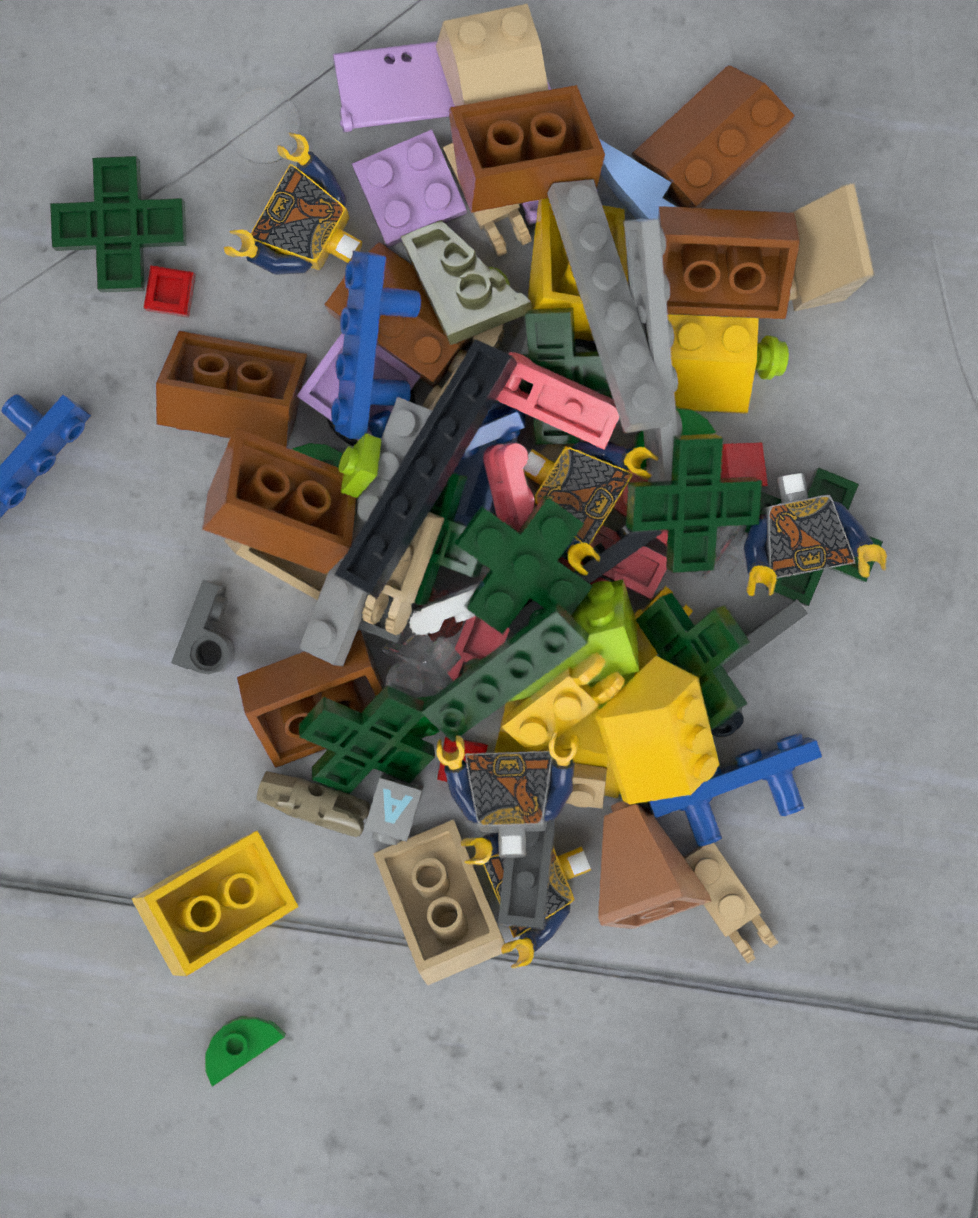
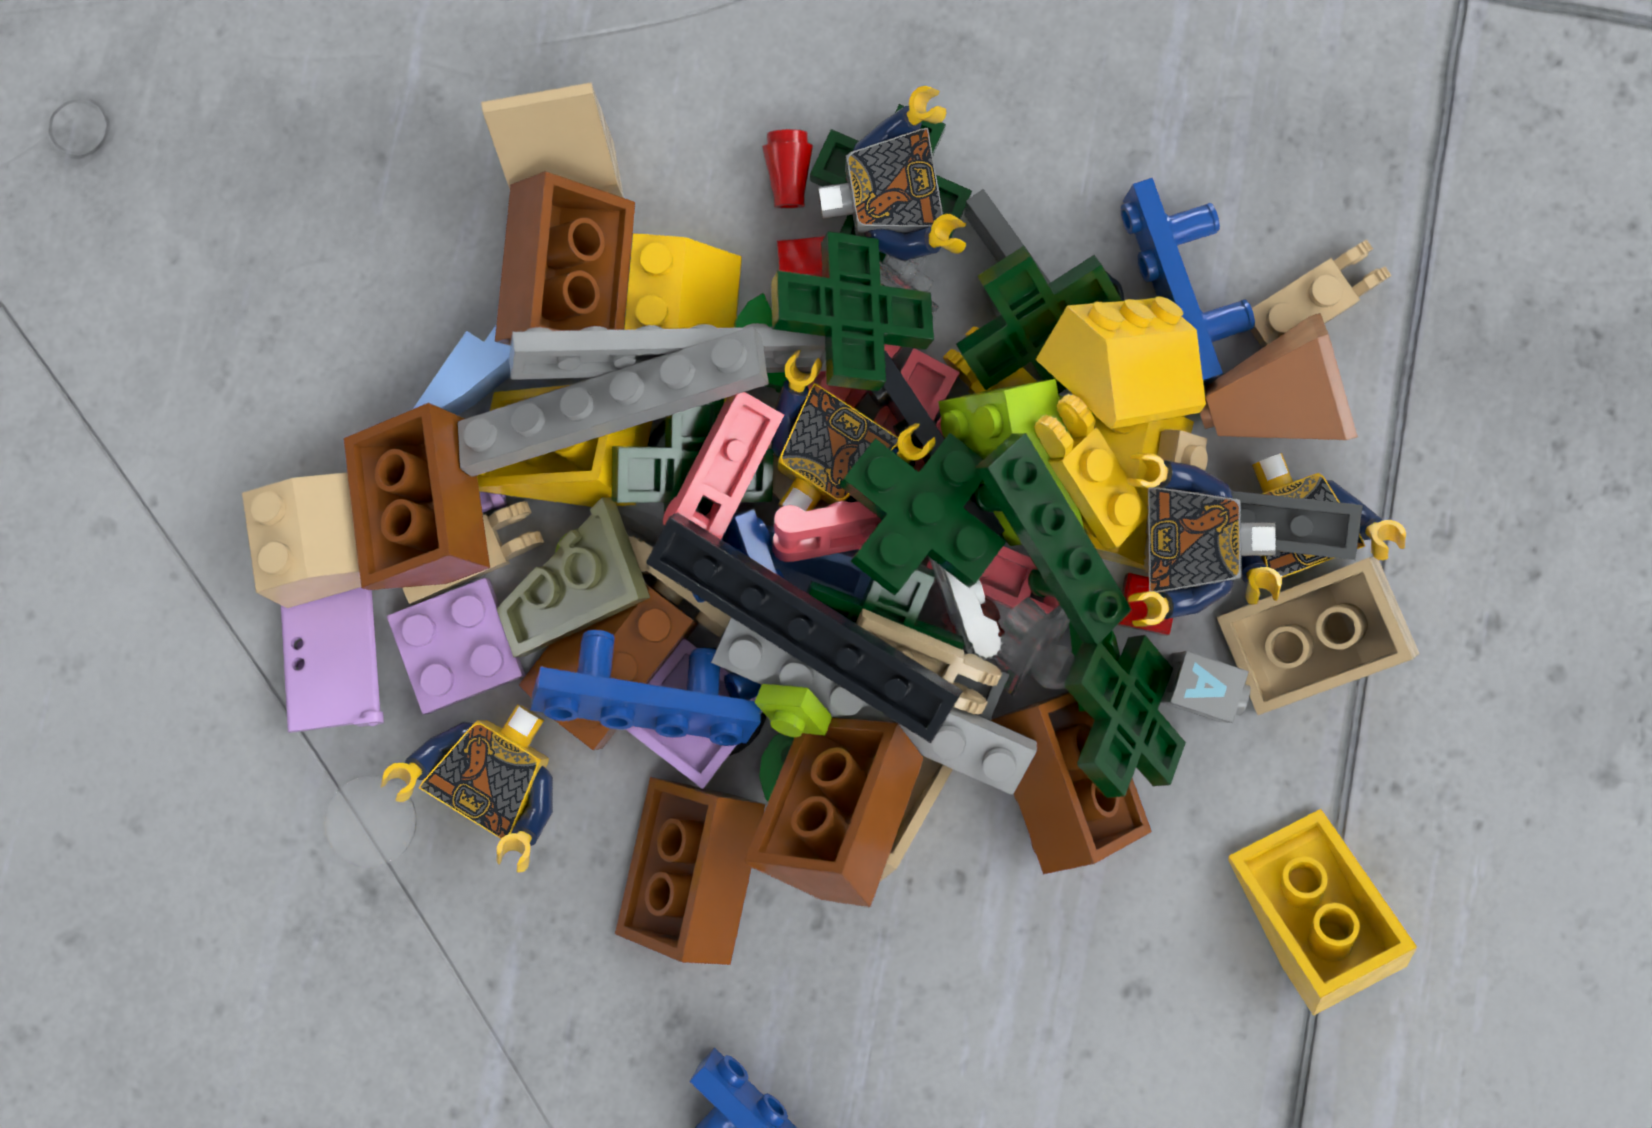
camera: 85 degrees left, 5 degrees down
(118, 224) = (481, 1005): dark green plate -> none
(169, 291) = (566, 944): red tile -> none
(207, 607) = (956, 908): dark grey plate -> none
(238, 1044) = (1489, 888): green plate -> none
(314, 803) = (1197, 784): dark tan hinge -> none
(715, 136) = (413, 281): dark orange slope -> none
(771, 357) = (679, 221): lime plate -> none
(825, 449) = (788, 166): none -> red cone

